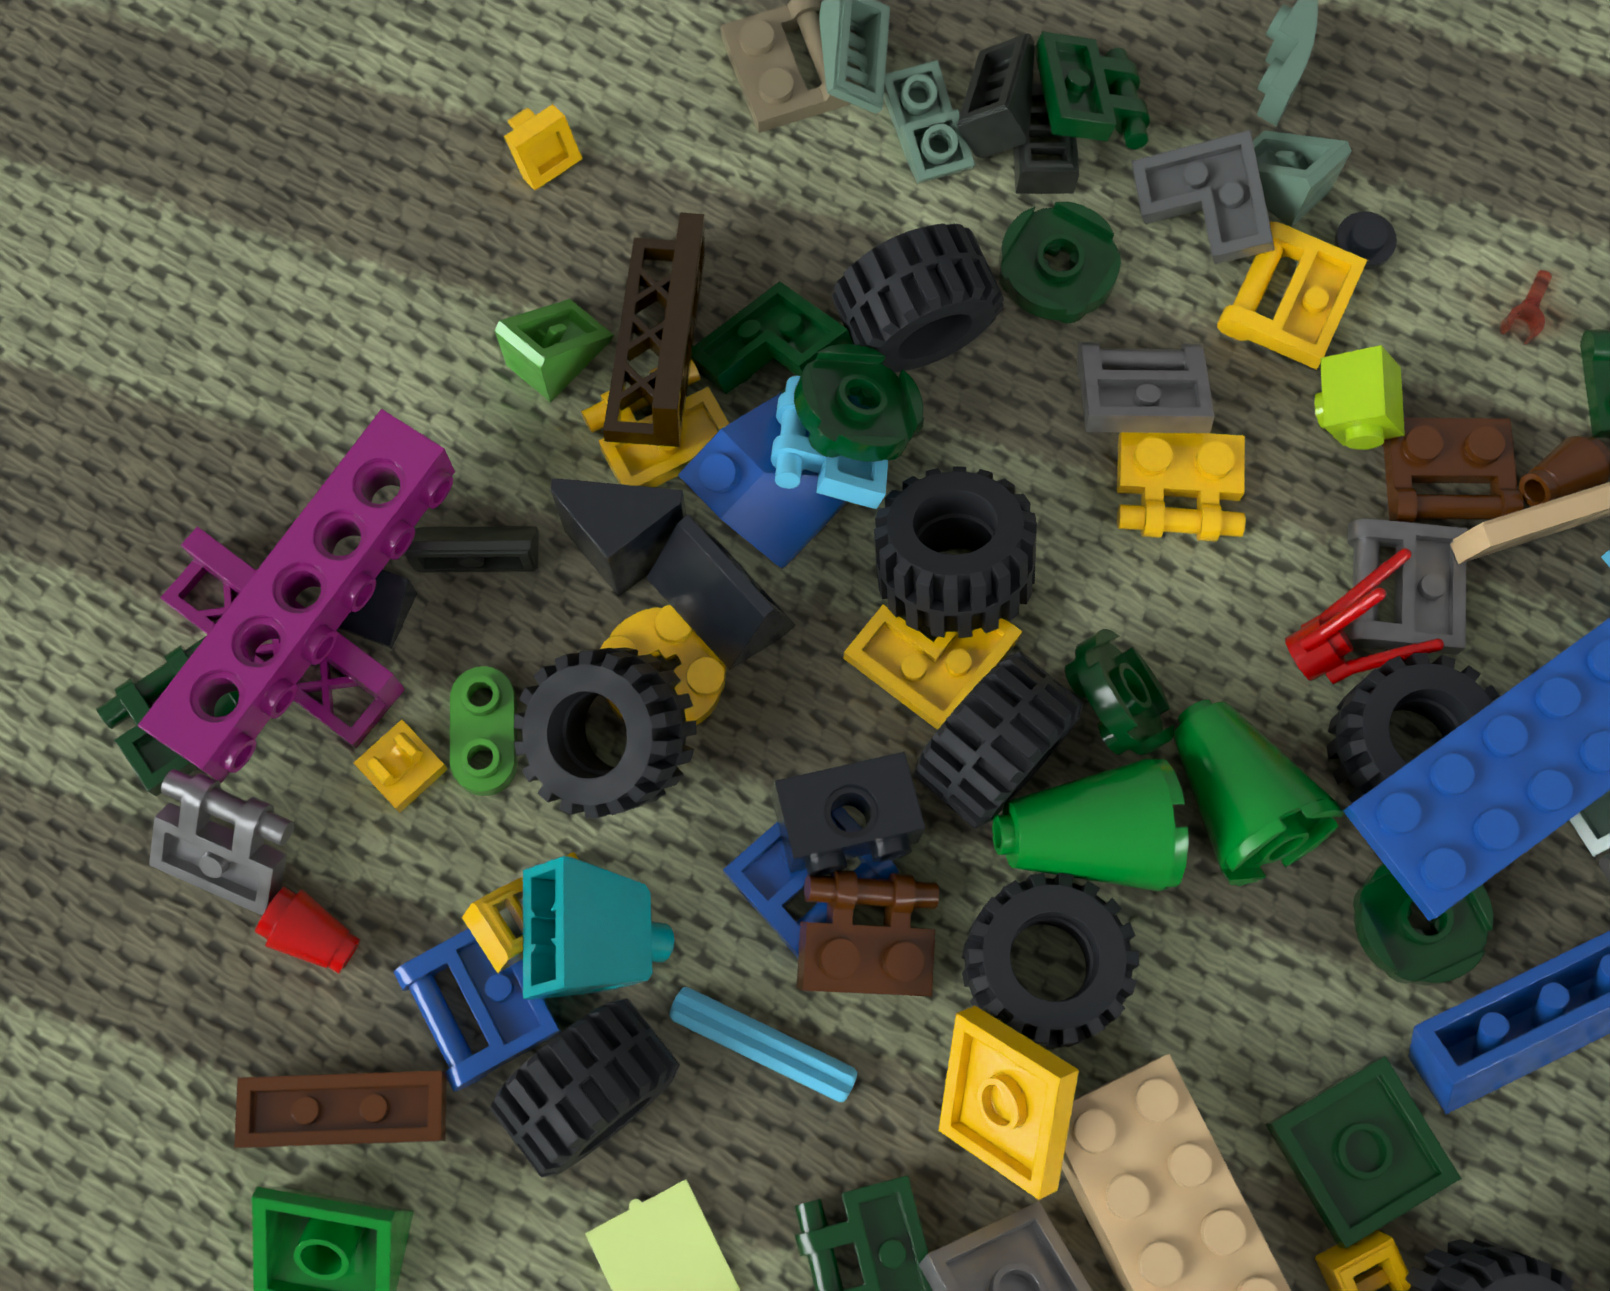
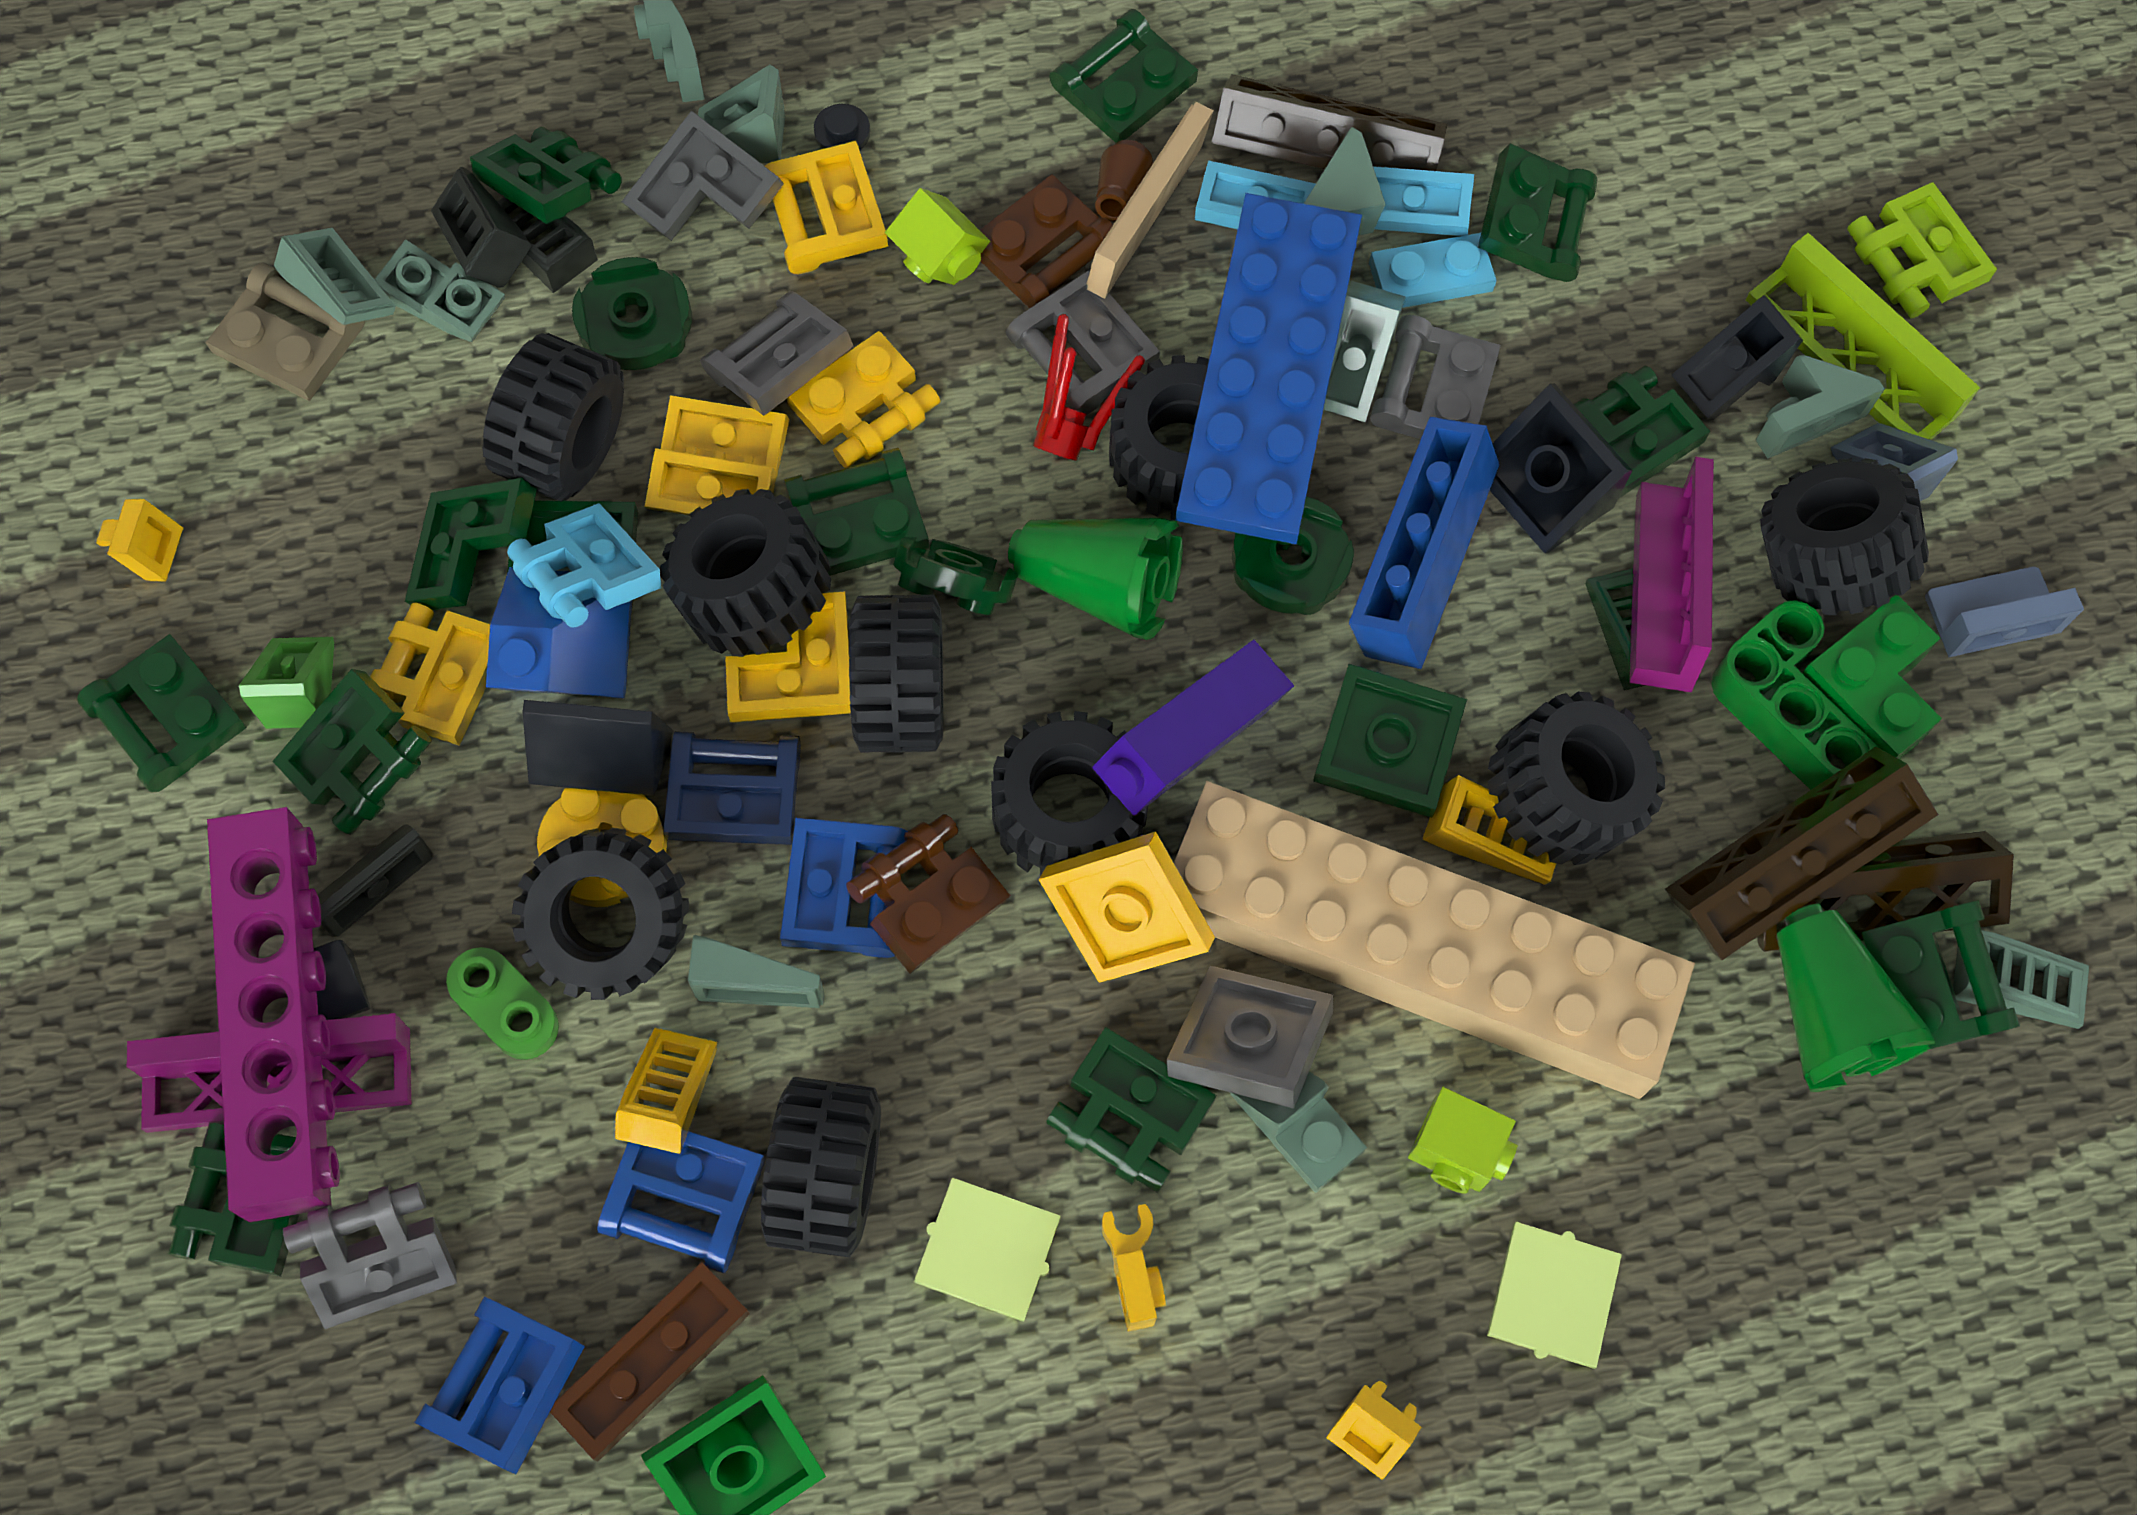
camera: 45 degrees left, 5 degrees down
(226, 1042) = (514, 1392): none -> blue plate
(306, 931) = (501, 1261): red cone -> none
(400, 765) = (460, 1083): yellow tile -> none
(464, 291) = (179, 700): none -> dark green plate
(538, 422) = (339, 738): none -> dark green plate
(587, 930) = (718, 1060): teal torso -> none
(618, 525) = (473, 762): black slope -> none
(662, 863) = (739, 976): none -> sand green slope
(669, 340) = (384, 585): dark brown fence -> none
(763, 1044) = (920, 1036): medium azure axle -> none
(780, 725) = (732, 805): none -> dark blue plate
(842, 427) = (579, 522): dark green plate -> none
(876, 787) = (839, 782): black brick -> none
(1021, 432) = (713, 452): none -> yellow slope
(1085, 591) = (866, 529): none -> dark green plate
(1100, 828) = (1024, 670): green cone -> none
(1197, 1000) = (1192, 727): none -> dark purple brick
(1529, 308) = (998, 89): clear red hand -> none

